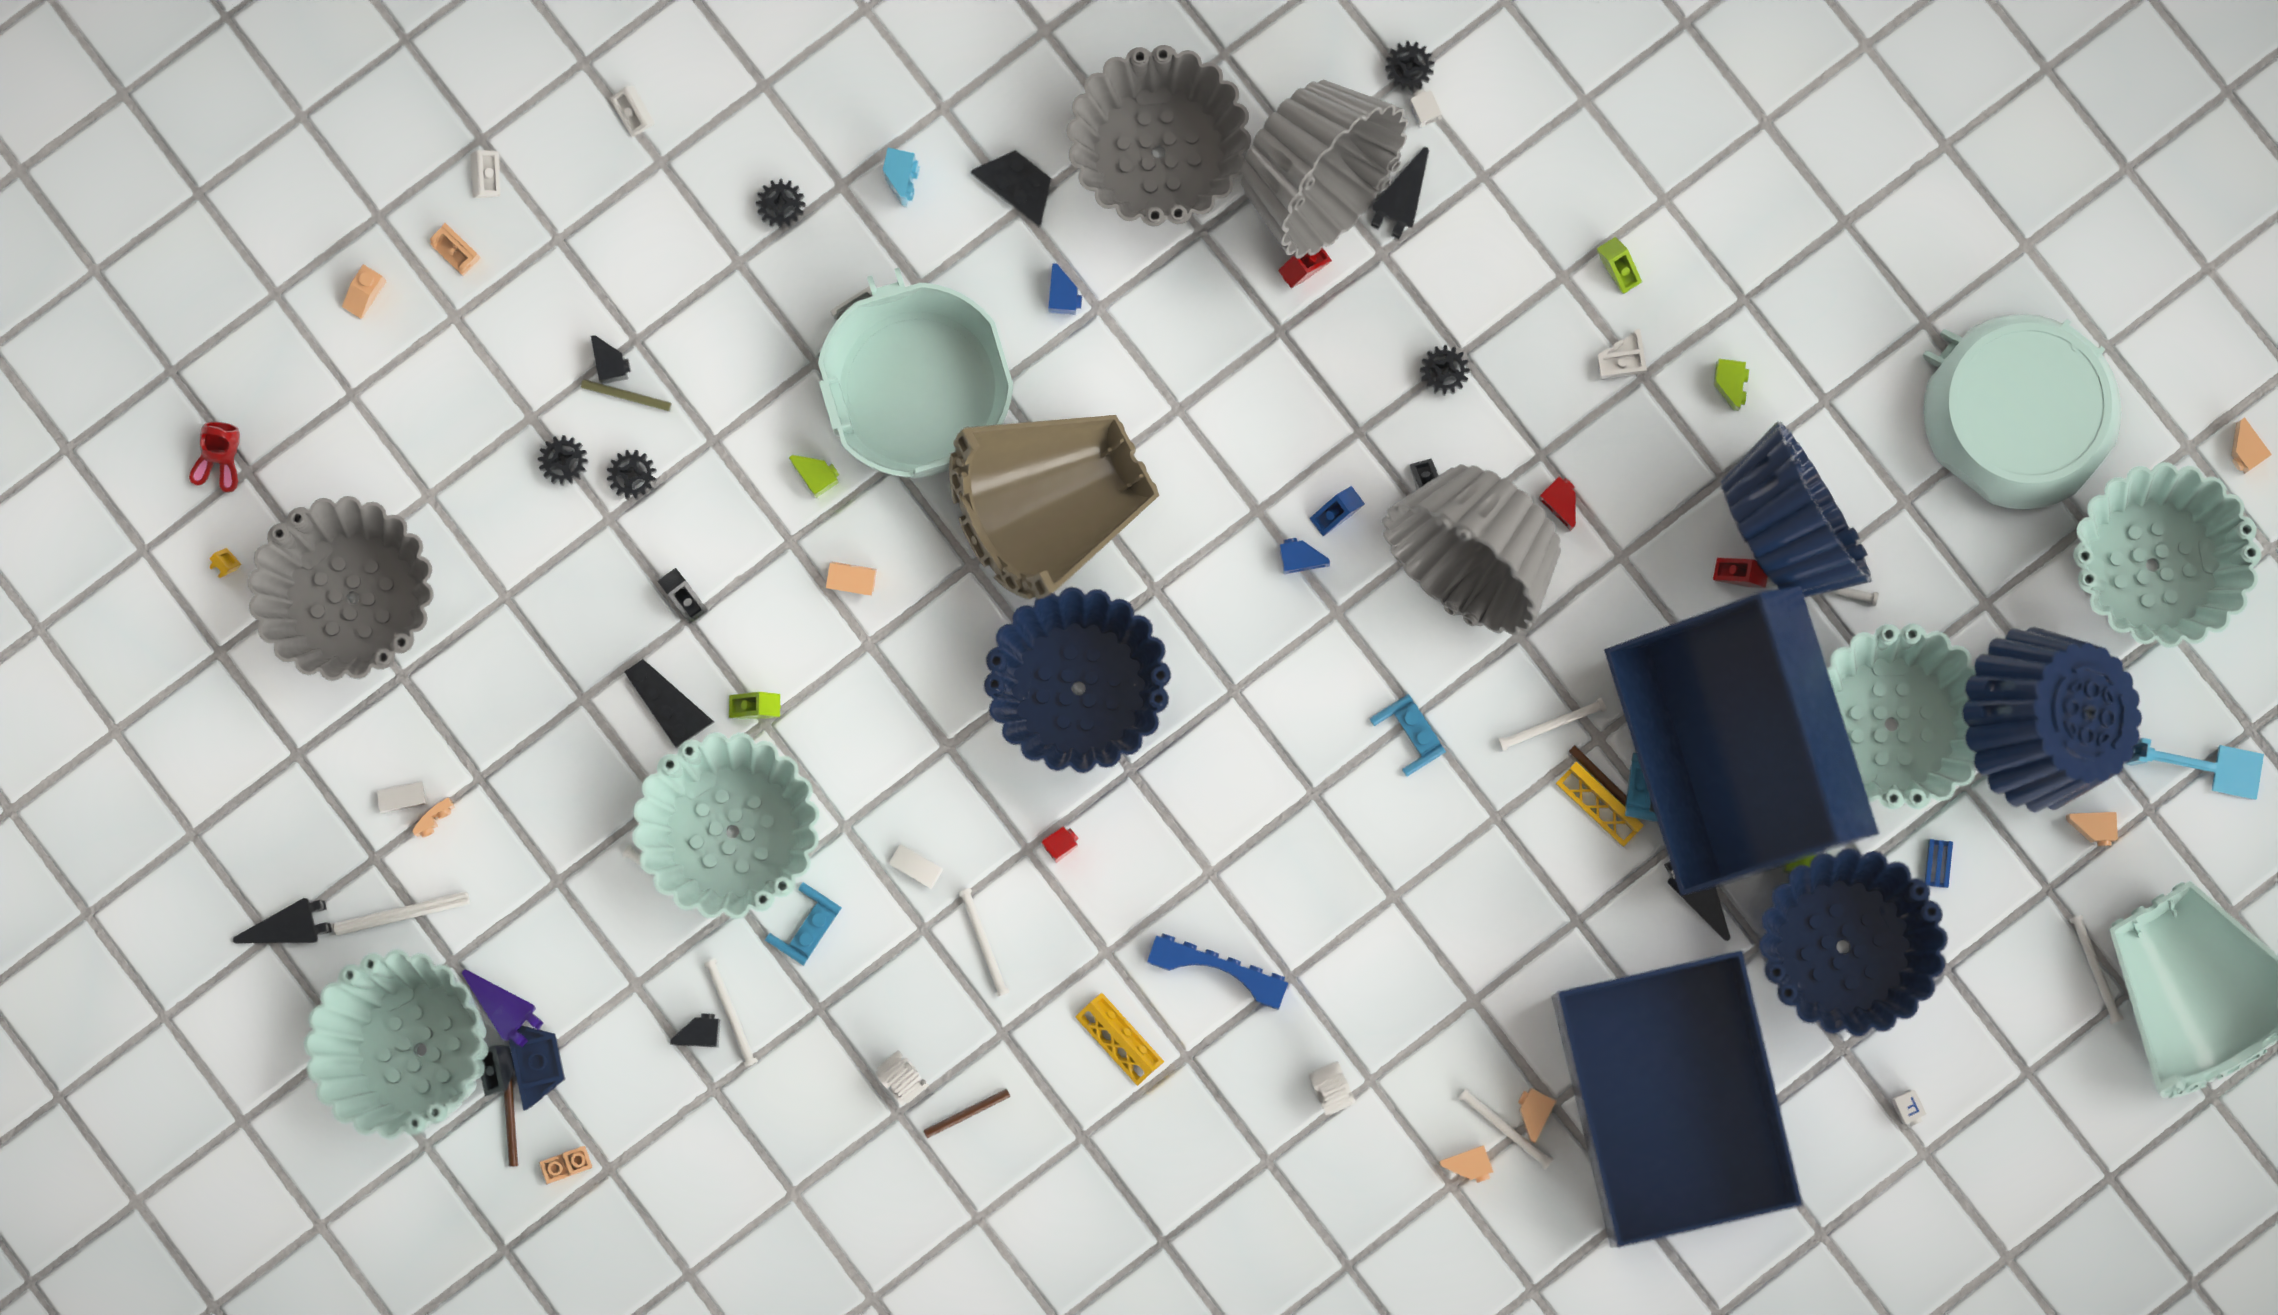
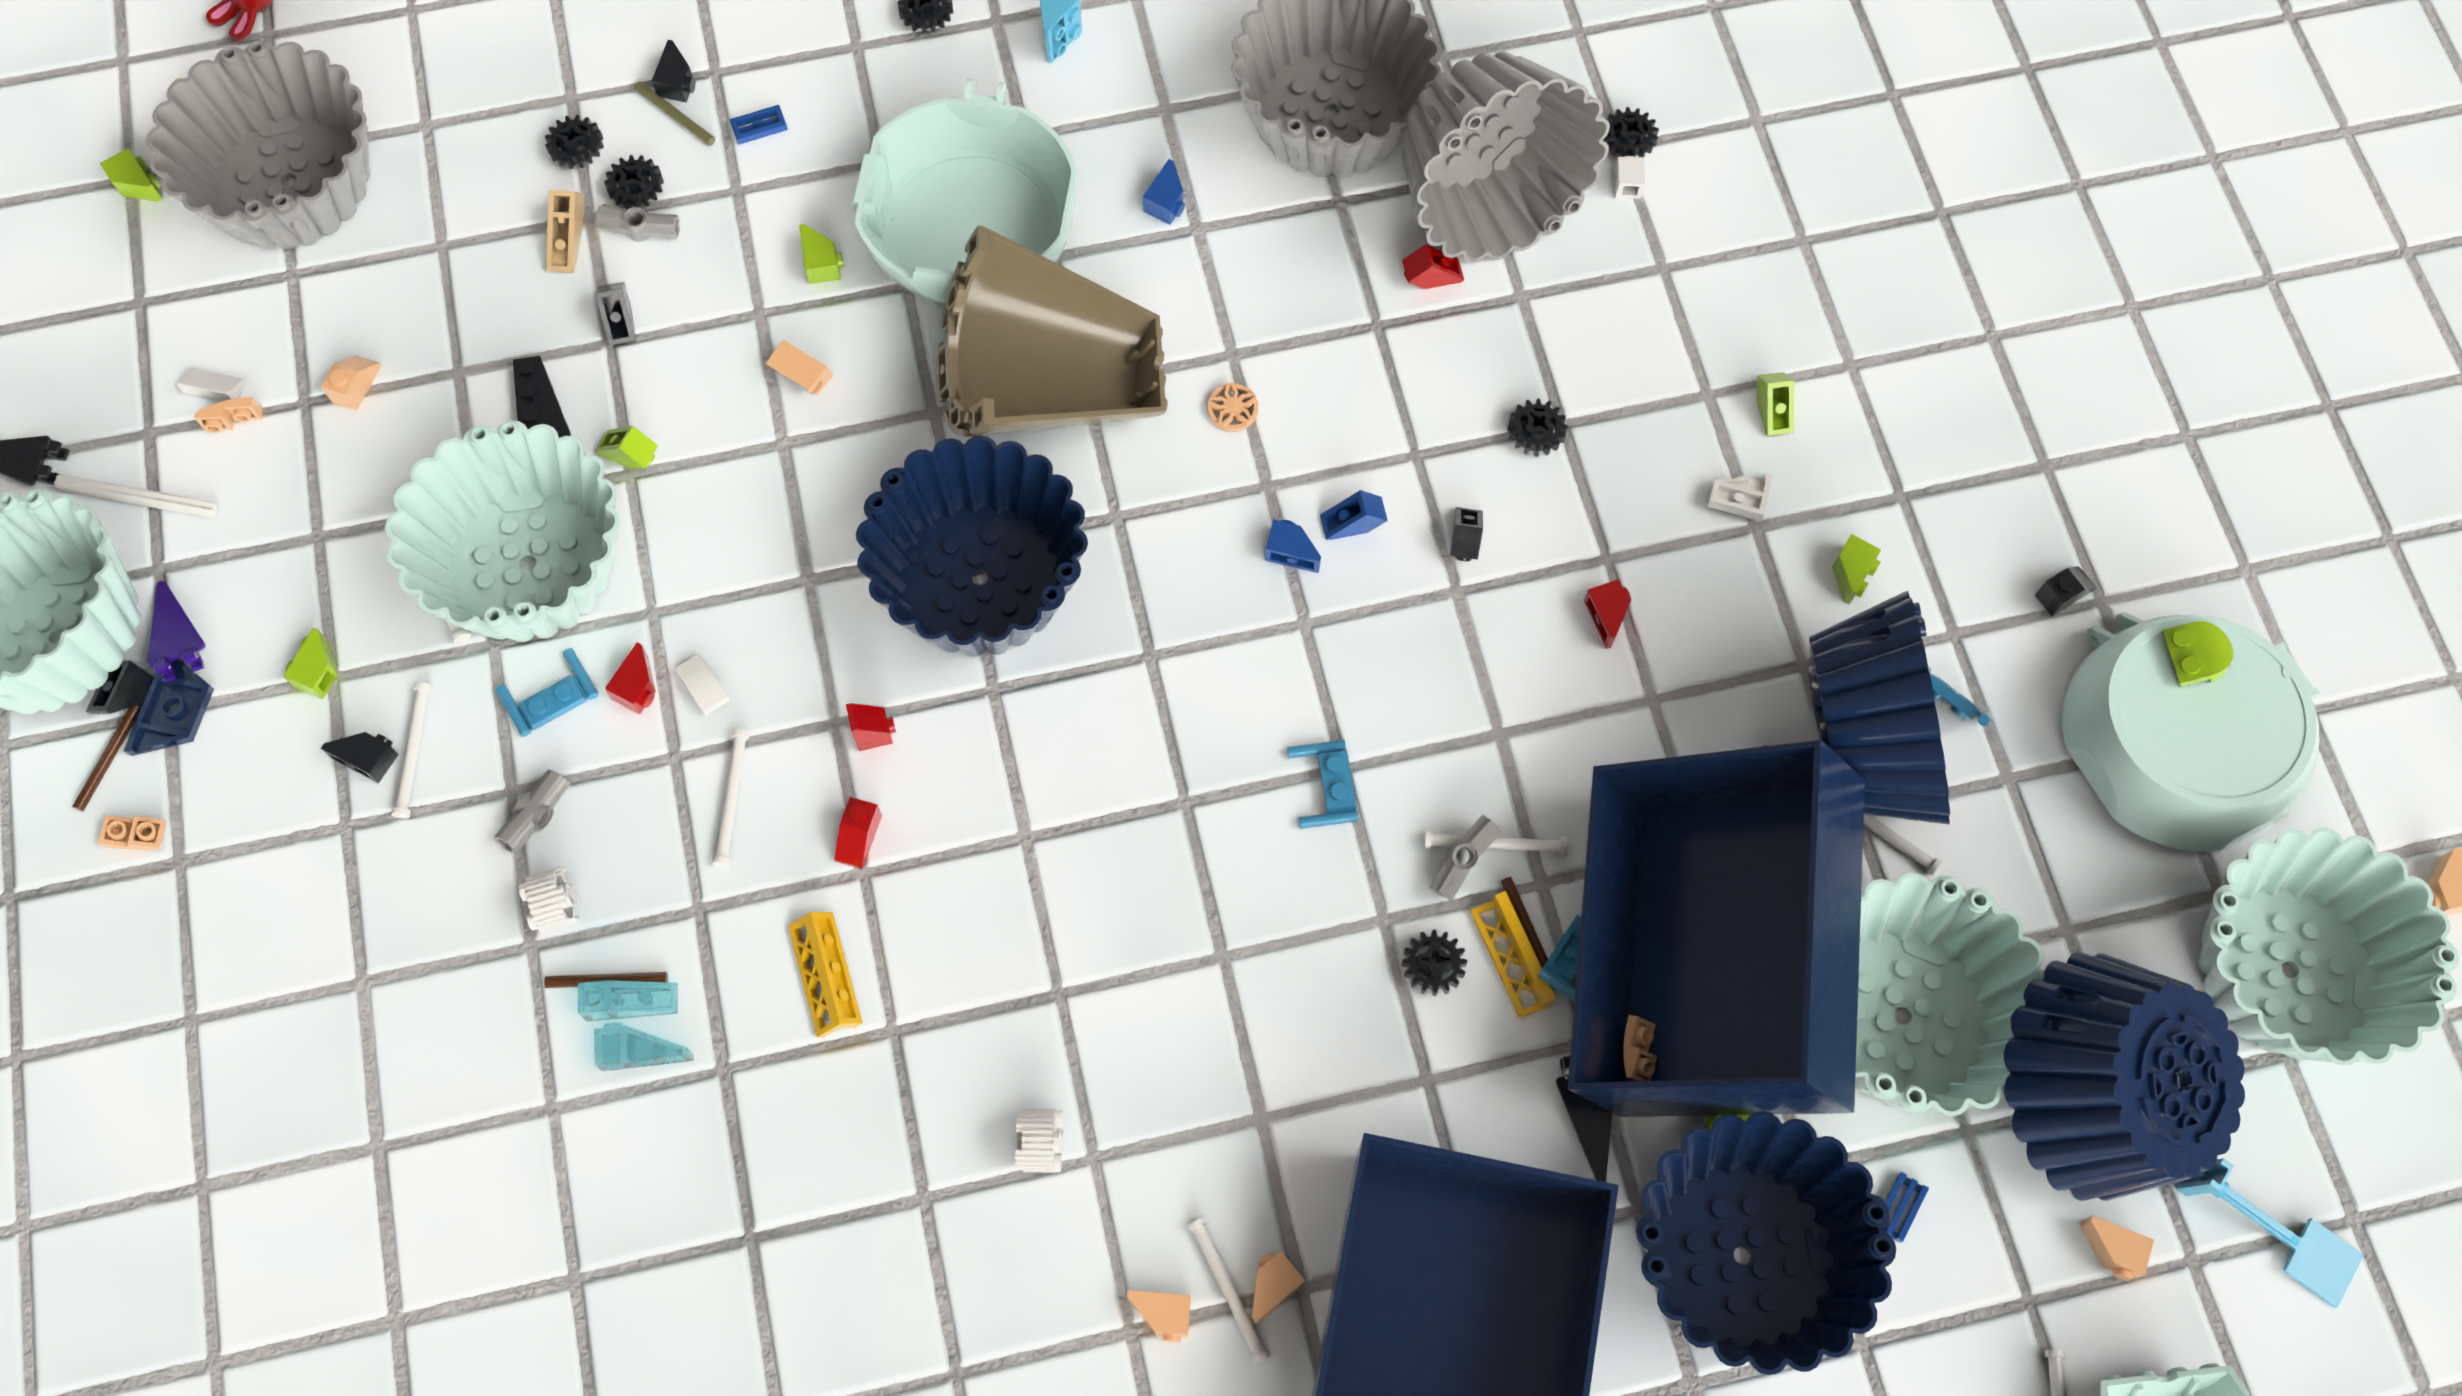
camera: 20 degrees right, 15 degrees down
(226, 655) = (130, 178): none -> lime slope
(509, 745) = (350, 381): none -> light nougat slope
(601, 543) = (564, 229): none -> tan slope
(623, 986) = (313, 666): none -> lime slope
(640, 513) = (648, 225): none -> light grey piece
(686, 388) = (759, 127): none -> blue tile
(847, 1018) = (532, 812): none -> light grey piece
(866, 889) = (633, 681): none -> red slope
(992, 1120) = (626, 999): none -> clear light blue slope
(1011, 1153) = (625, 1047): none -> clear light blue slope
(1017, 183) = (1172, 83): black wing -> none
(1090, 928) = (857, 832): none -> red slope
(1172, 955) = (934, 906): blue arch -> none
(1201, 457) = (1232, 407): none -> light nougat wheel
(1402, 196) = (1565, 250): black flag -> none
(1476, 547) = (1491, 591): light grey container -> none
(1533, 762) = (1476, 841): none -> light grey piece
(1551, 845) = (1422, 962): none -> black gear
(1718, 844) = (1637, 1040): none -> light nougat slope
(1848, 460) = (1961, 705): none -> dark azure plate
(1896, 327) = (2064, 589): none -> black slope
(2006, 362) = (2198, 652): none -> lime slope

